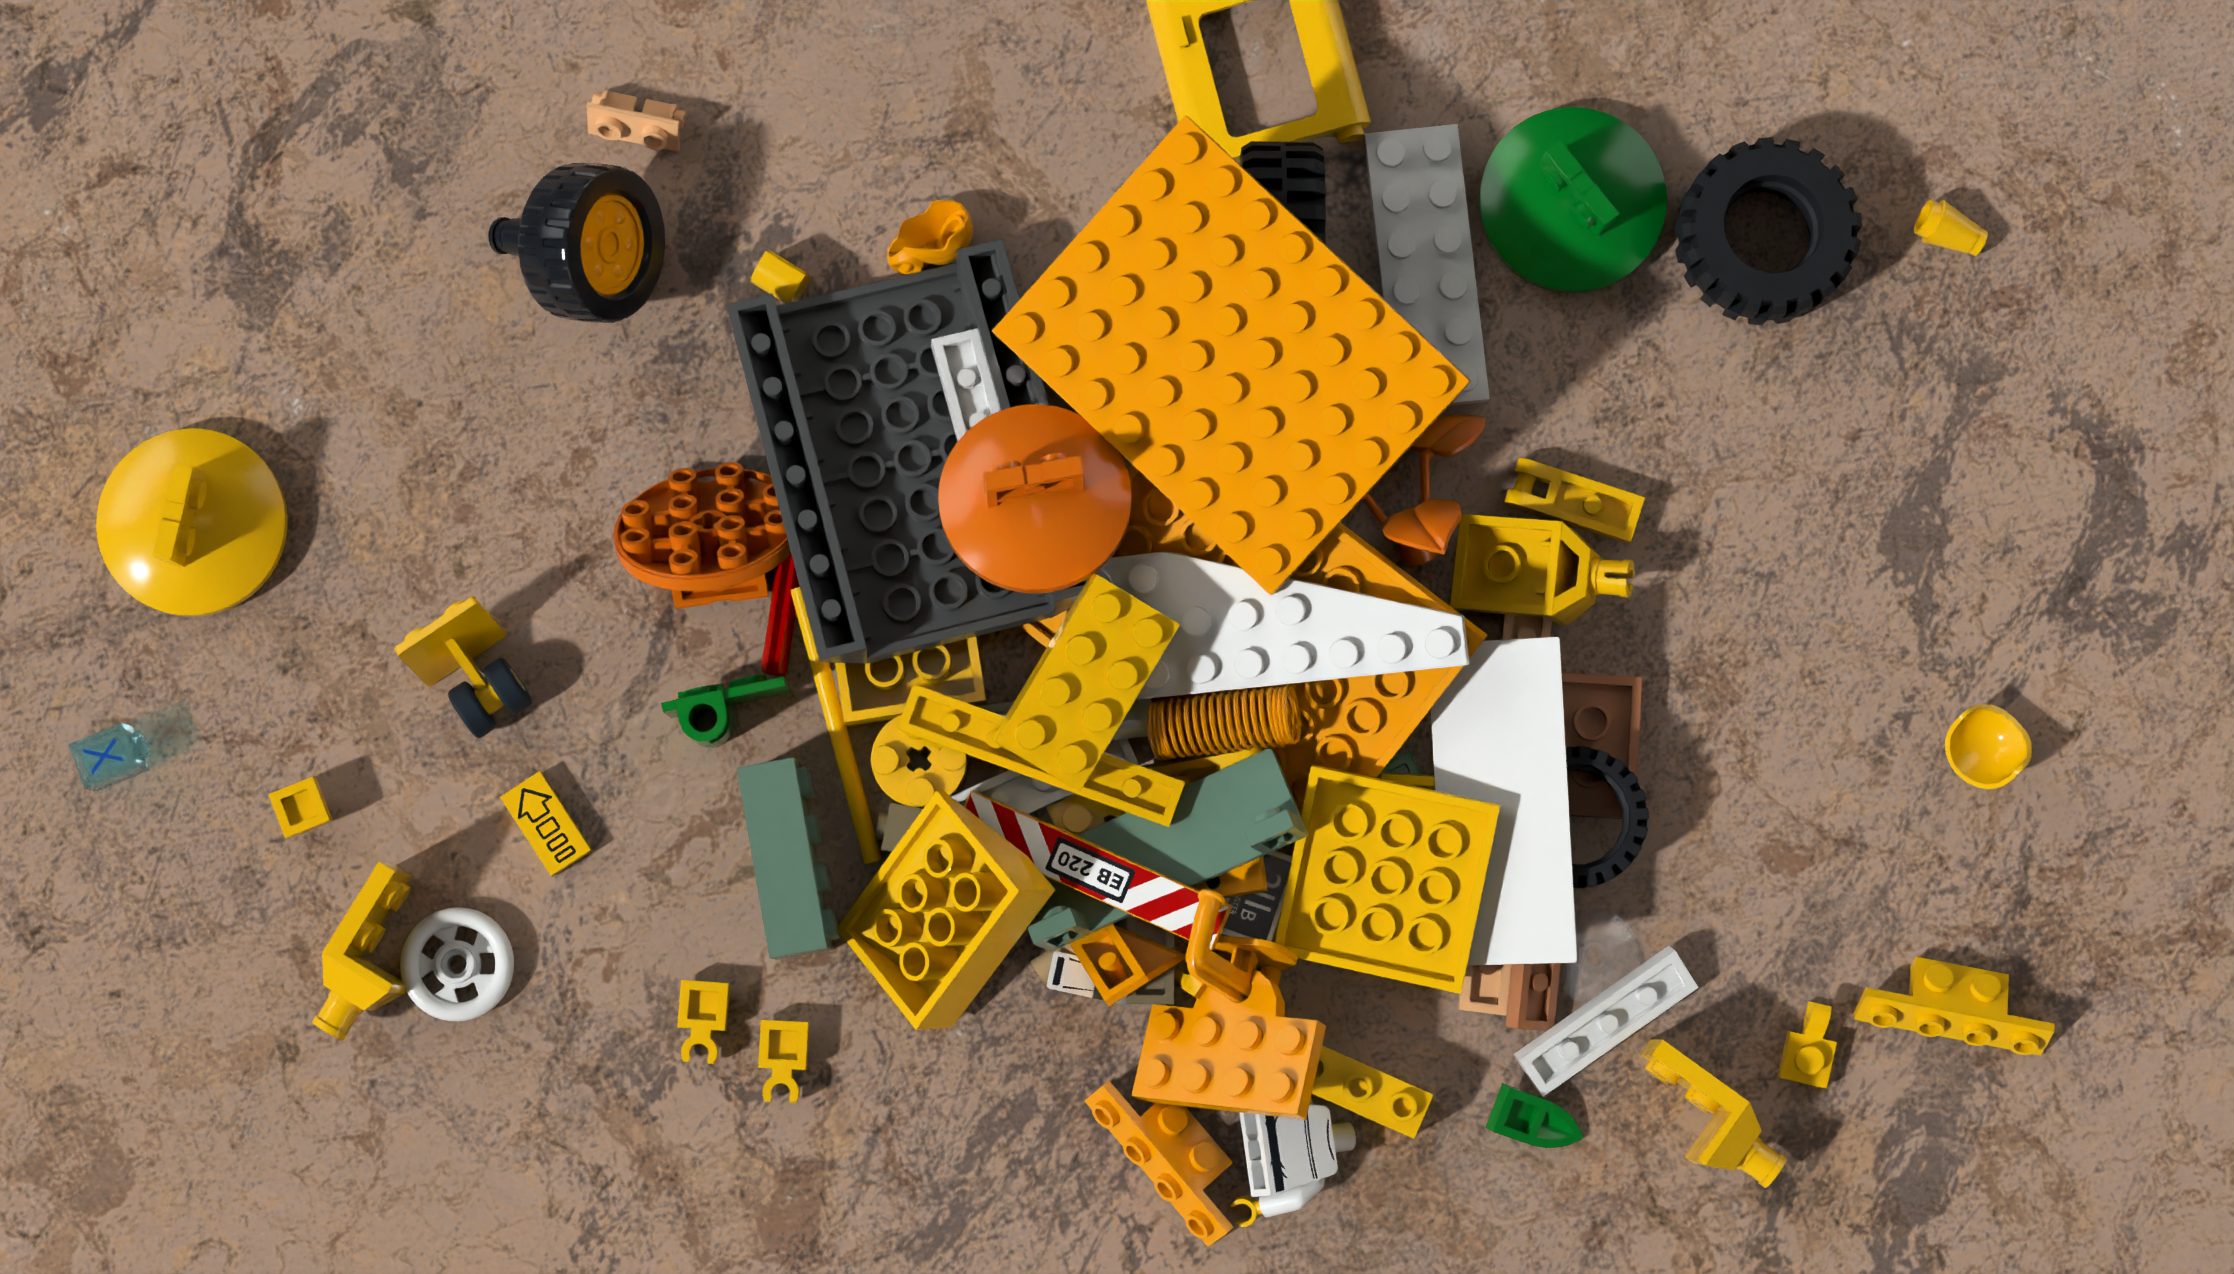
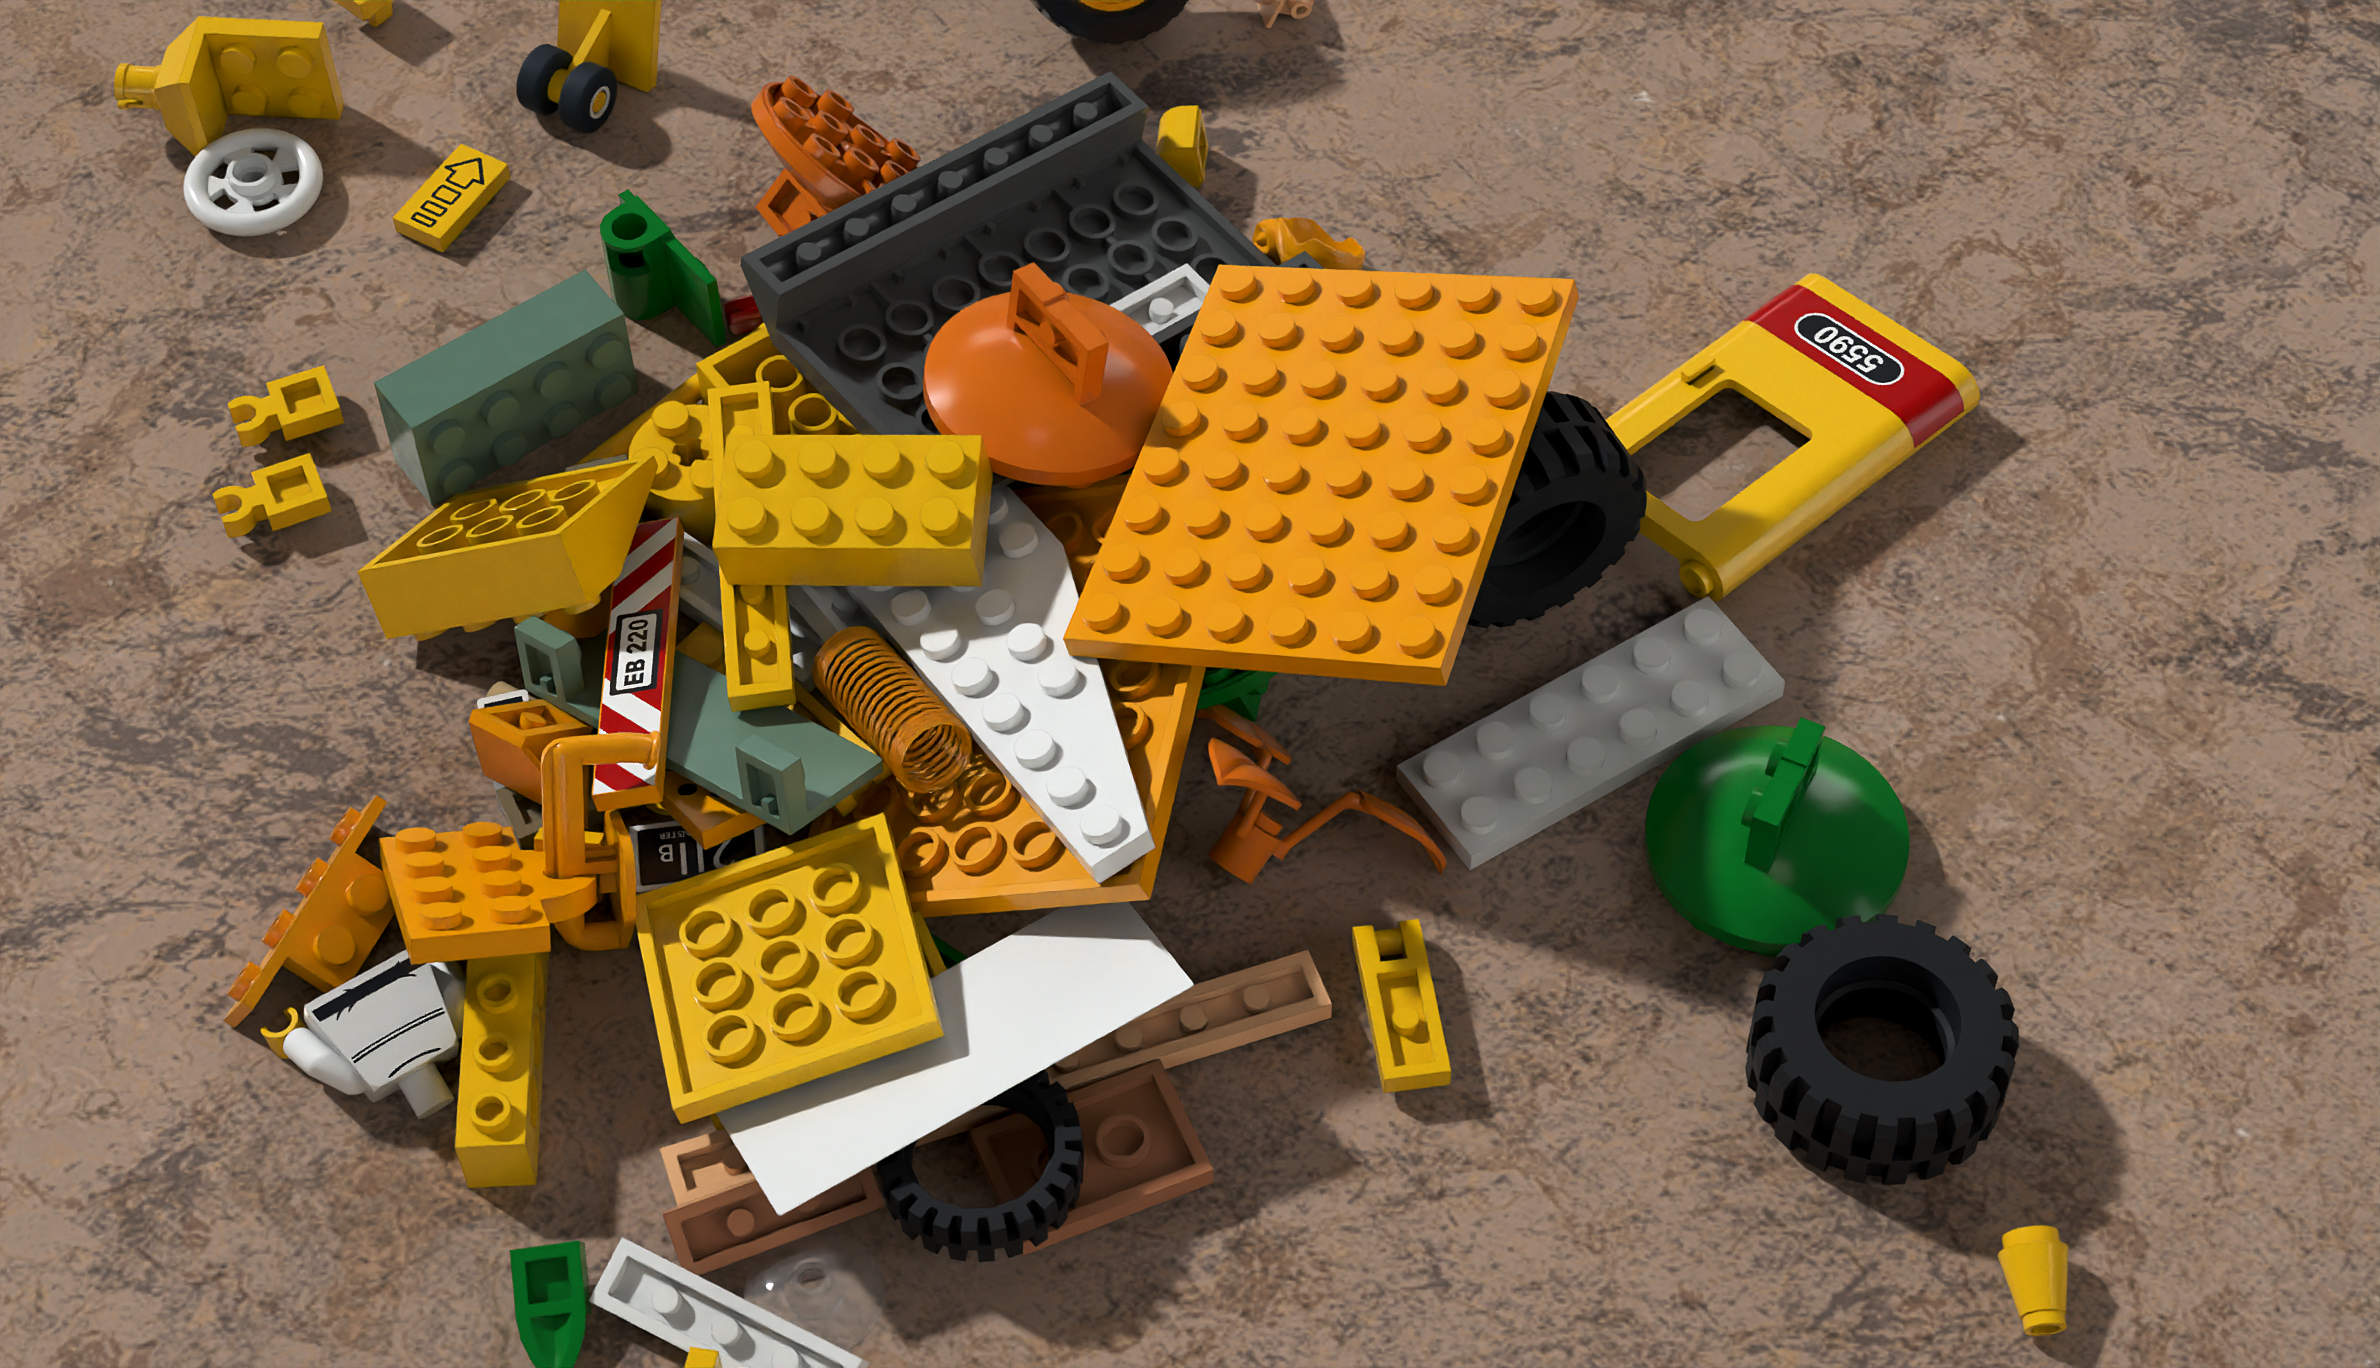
camera: 65 degrees right, 30 degrees down
(1531, 569) = (1280, 979): yellow plate -> none

